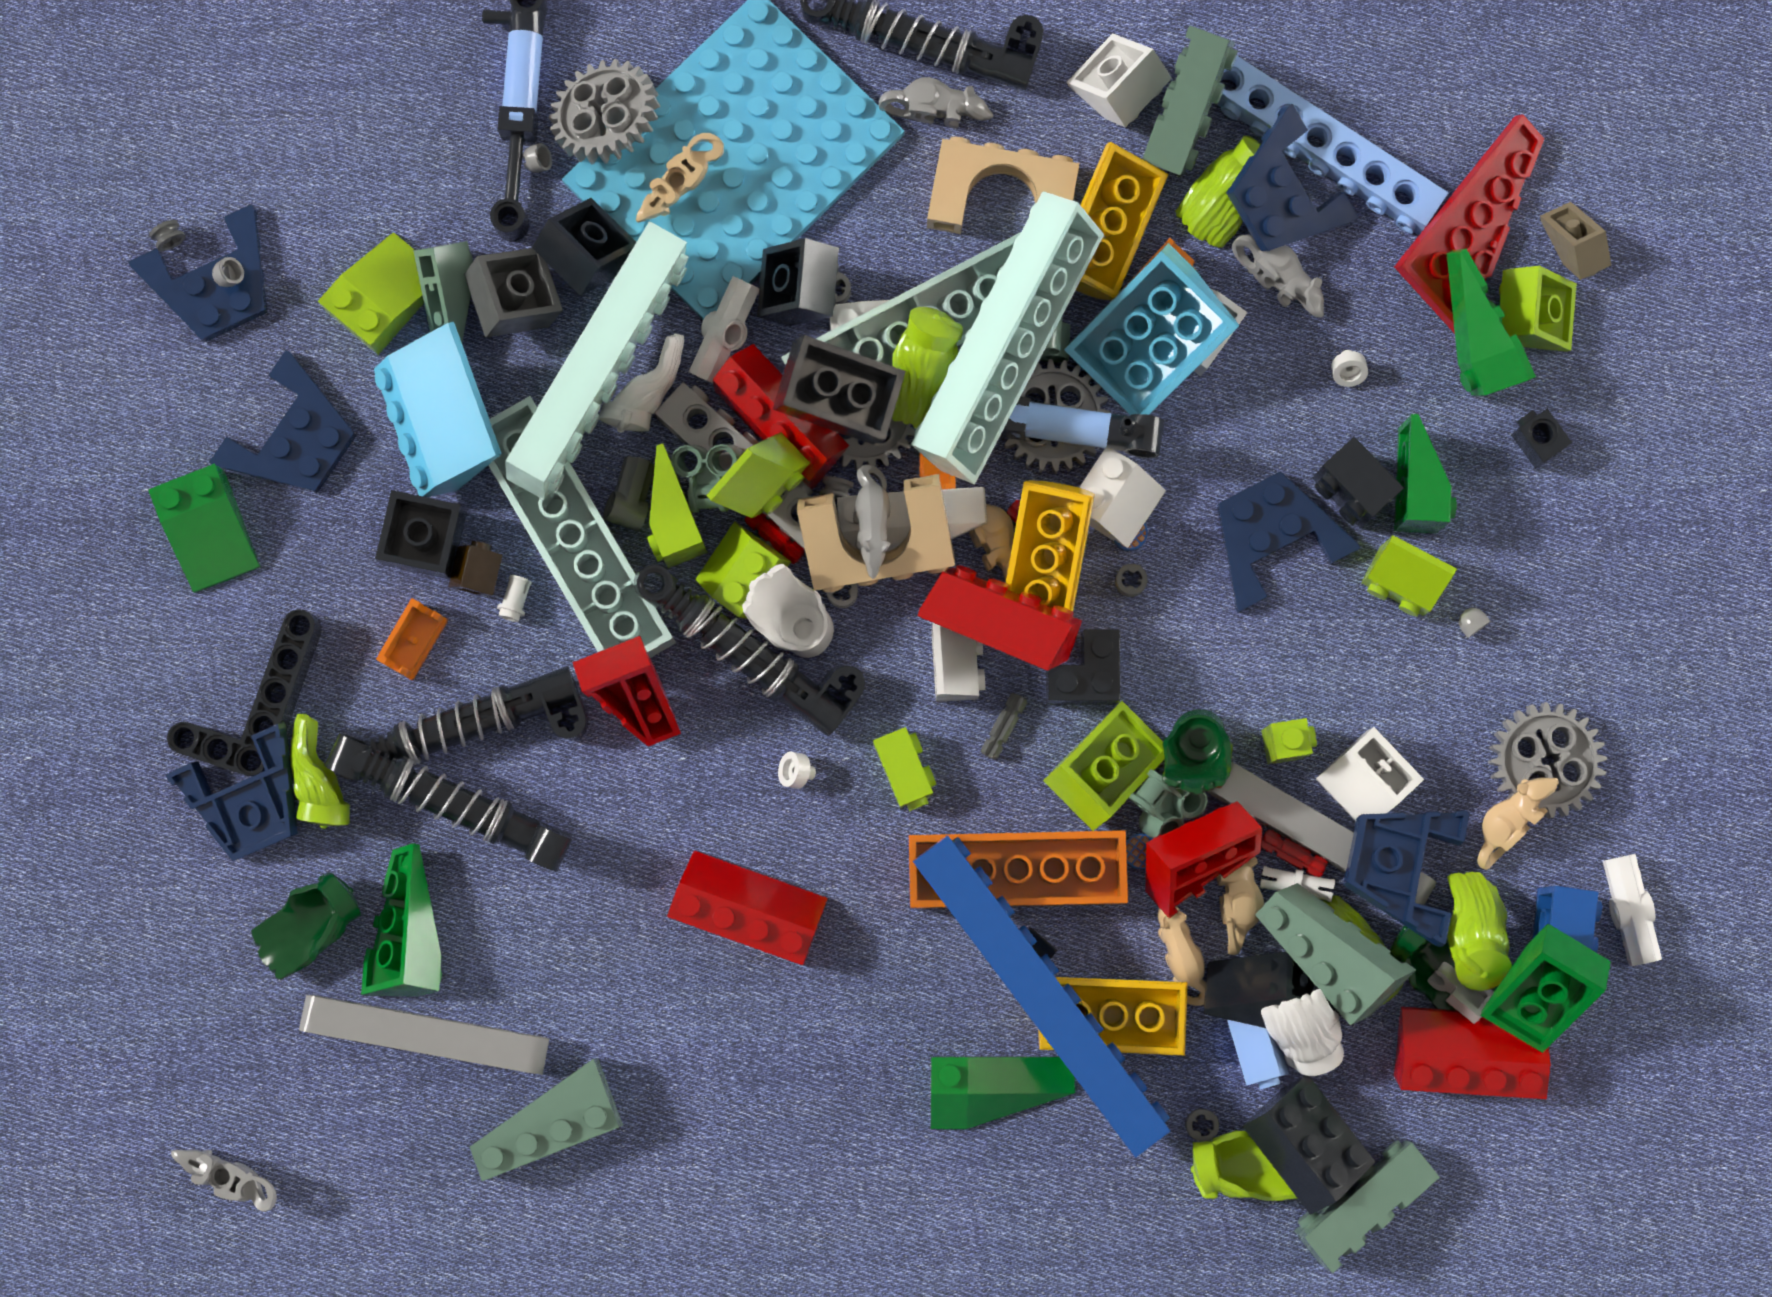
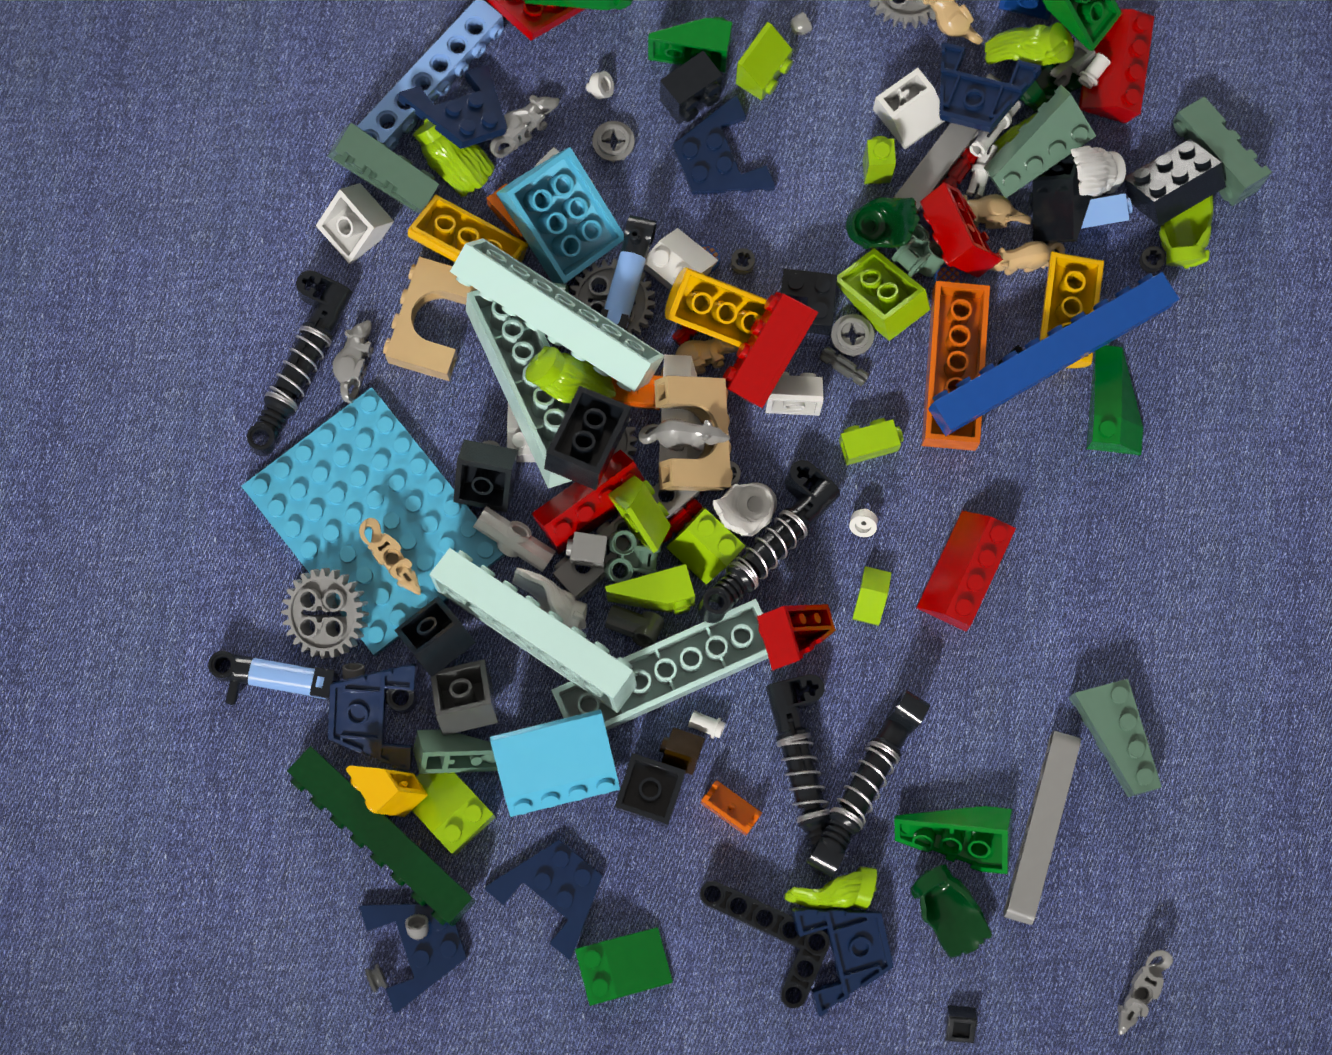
camera: 85 degrees left, 5 degrees down
(173, 952) = (961, 1024): none -> black slope
(333, 216) = (382, 837): none -> dark green brick
(389, 212) = (387, 790): none -> yellow slope
(483, 170) = (359, 714): none -> dark blue wing
(703, 791) = (872, 595): none -> lime slope
(712, 419) = (587, 549): none -> light grey brick
(837, 486) = (649, 468): light grey bush -> none
(1057, 719) = (860, 326): none -> light grey gear
(1285, 382) = (622, 133): none -> light grey gear
(1328, 876) = (983, 142): none -> white pin
(1452, 1020) = (1093, 71): none -> white pin

